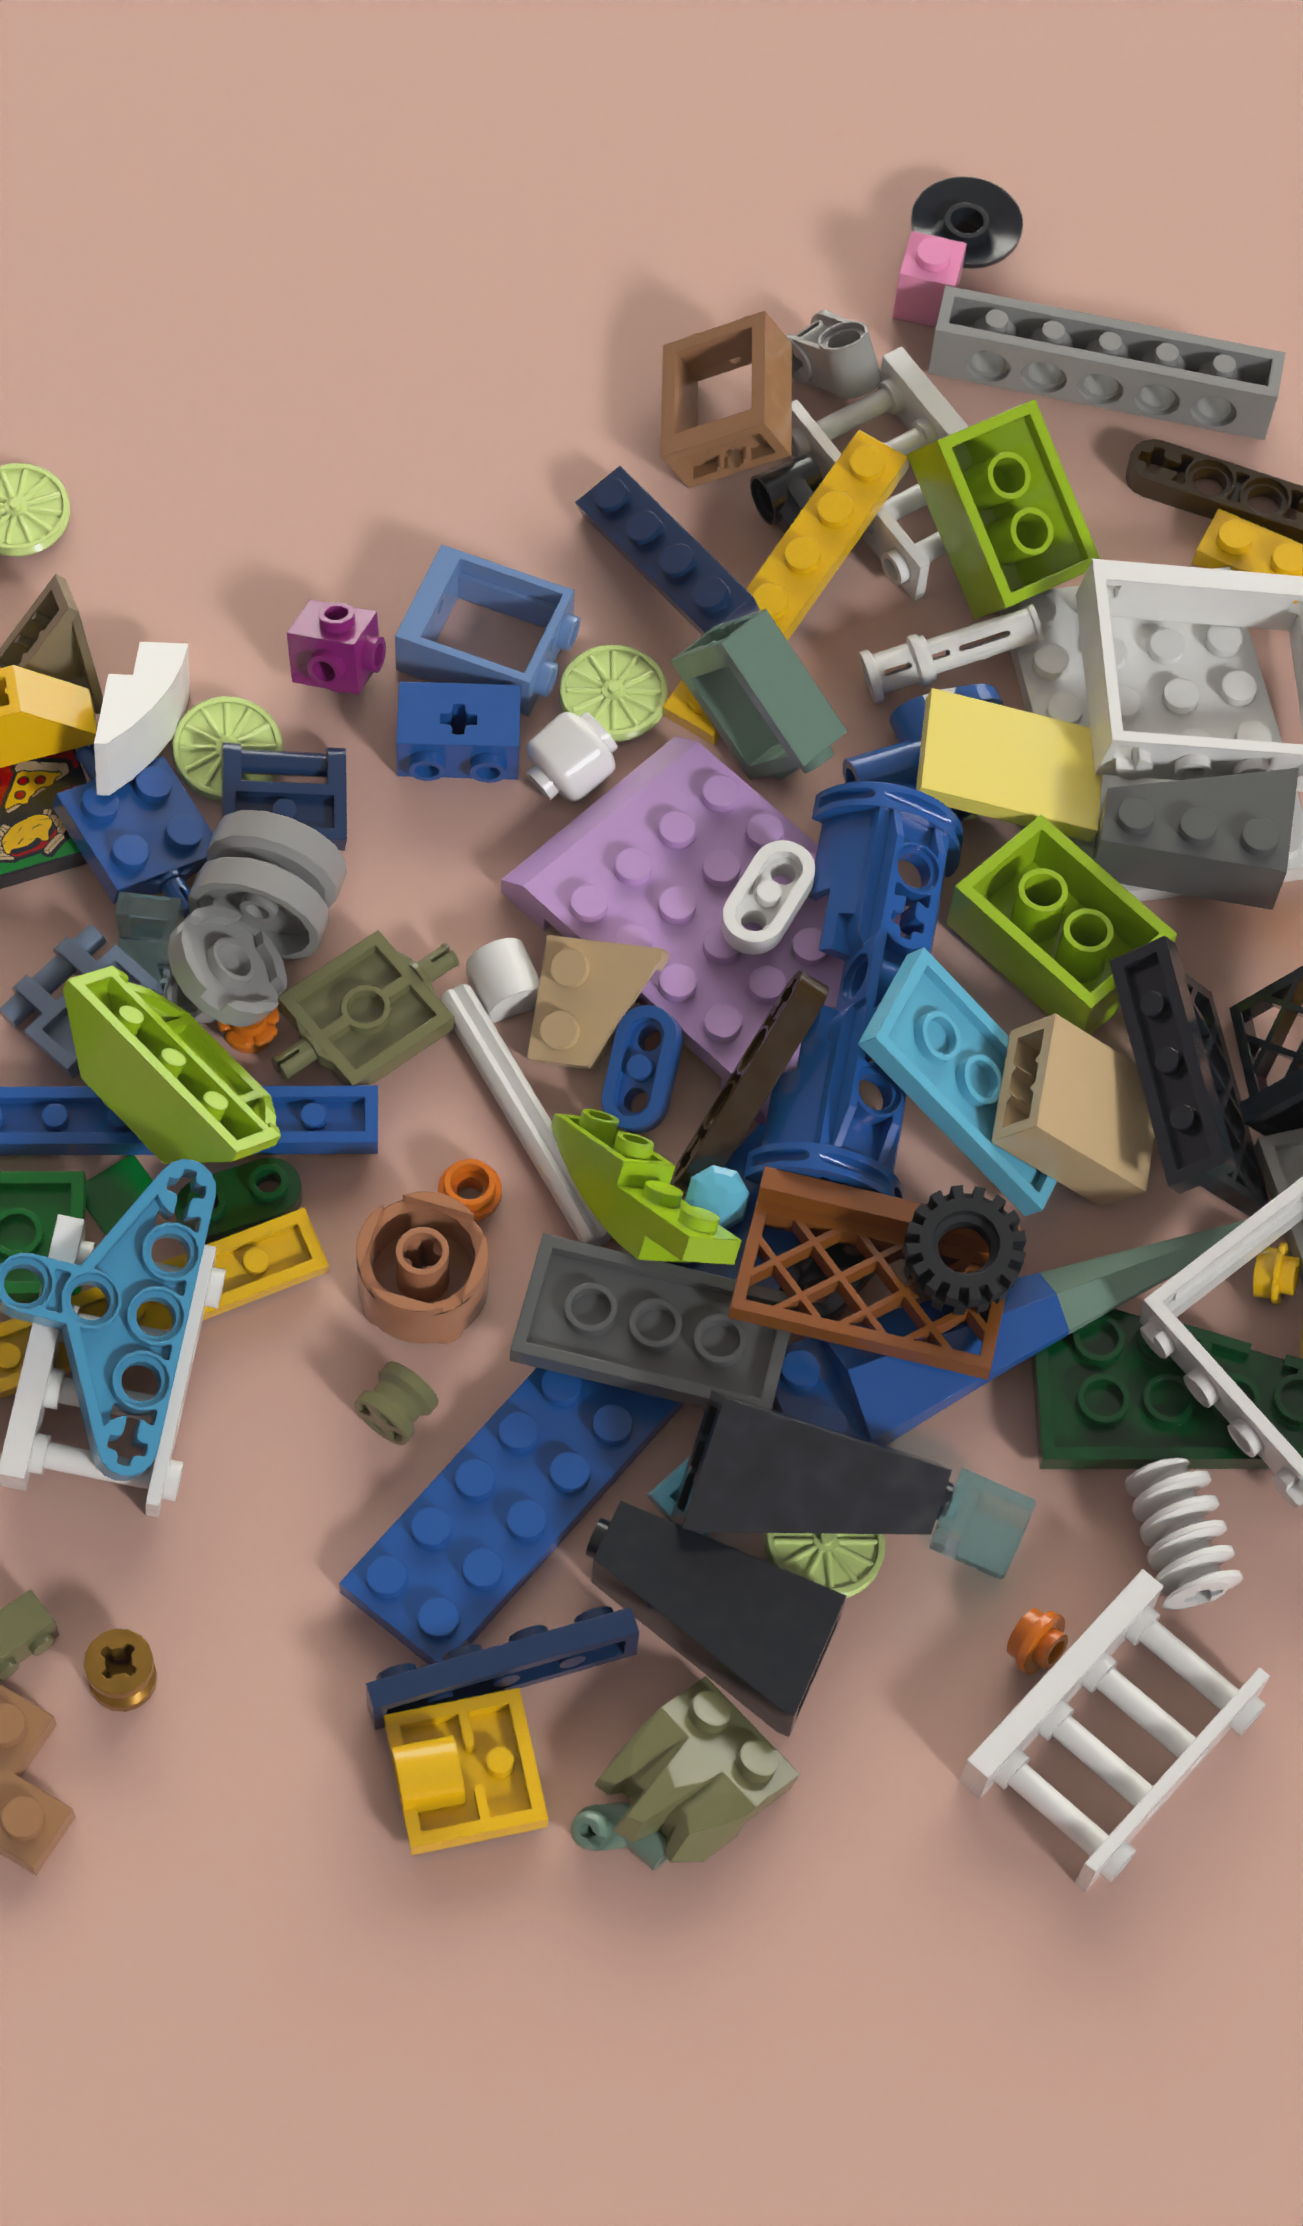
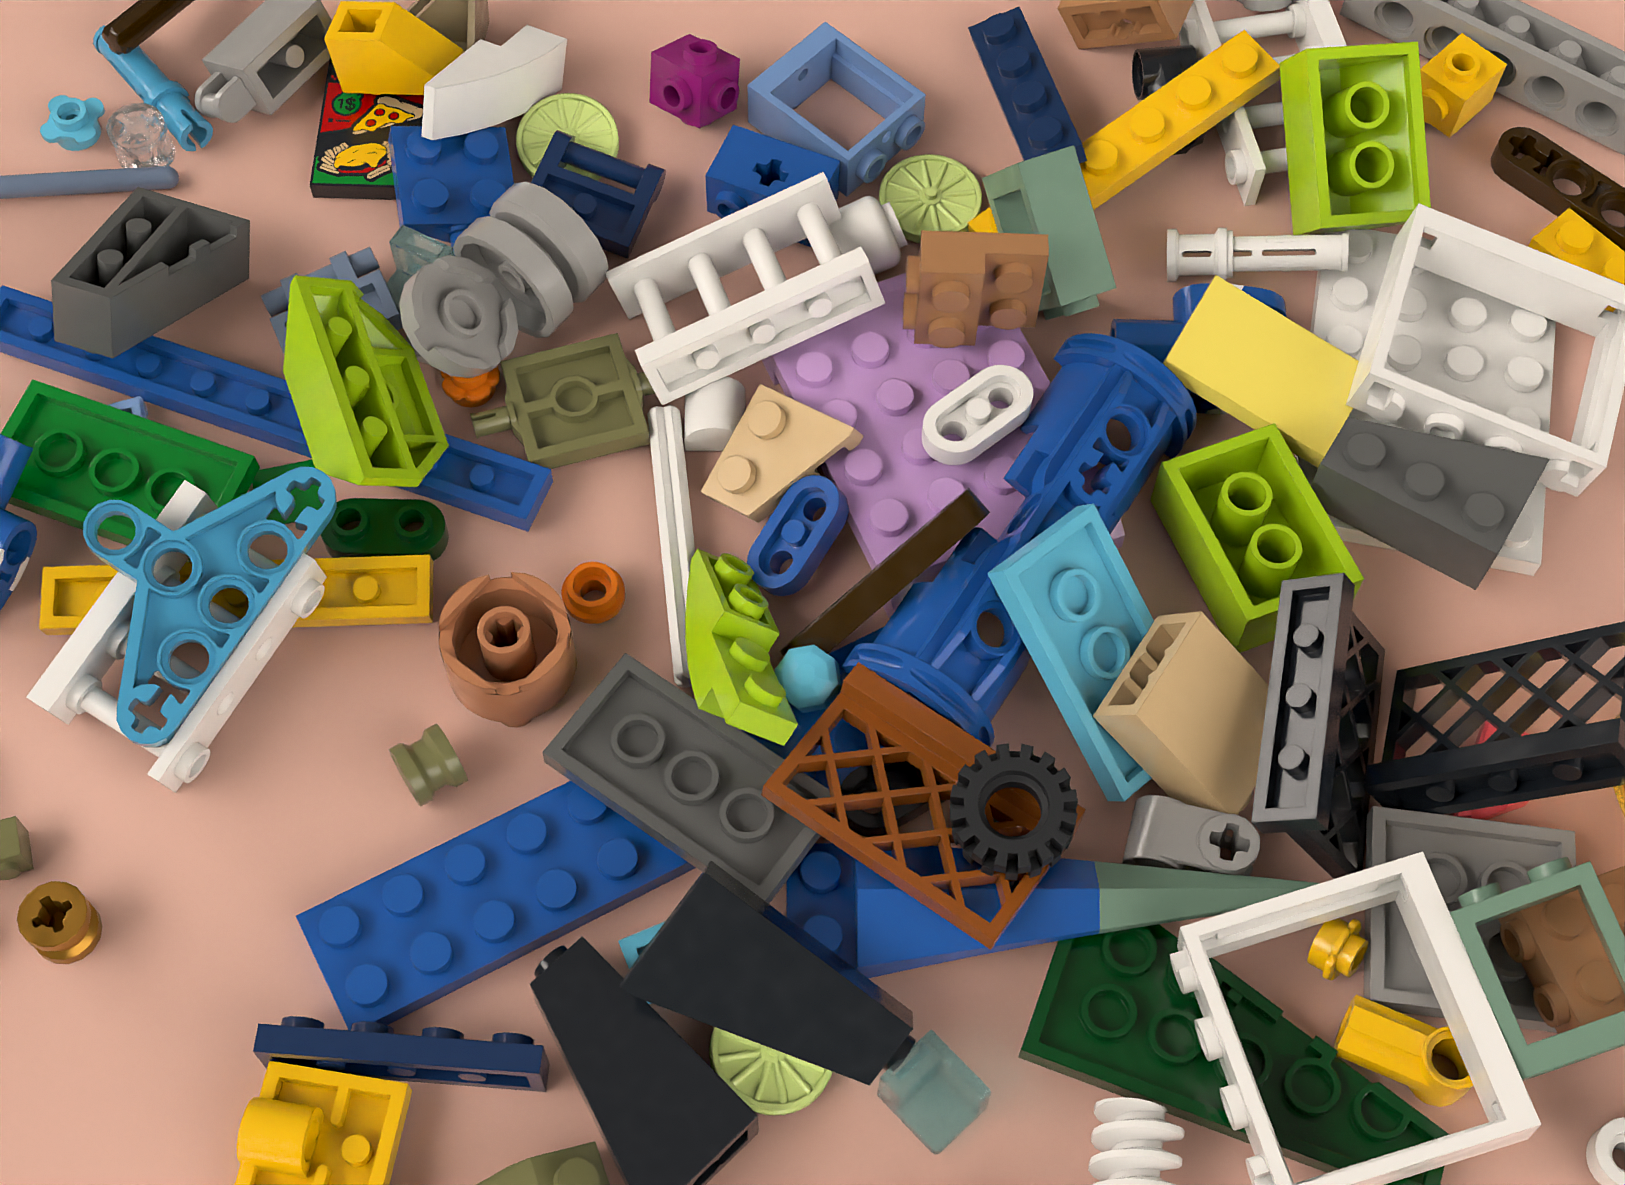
camera: 25 degrees right, 0 degrees up
(521, 884) = (762, 323): none -> white fence
(717, 769) = (972, 283): none -> medium nougat plate
(1075, 414) = (1455, 95): none -> yellow brick
(1111, 1222) = (1189, 838): none -> light grey piece

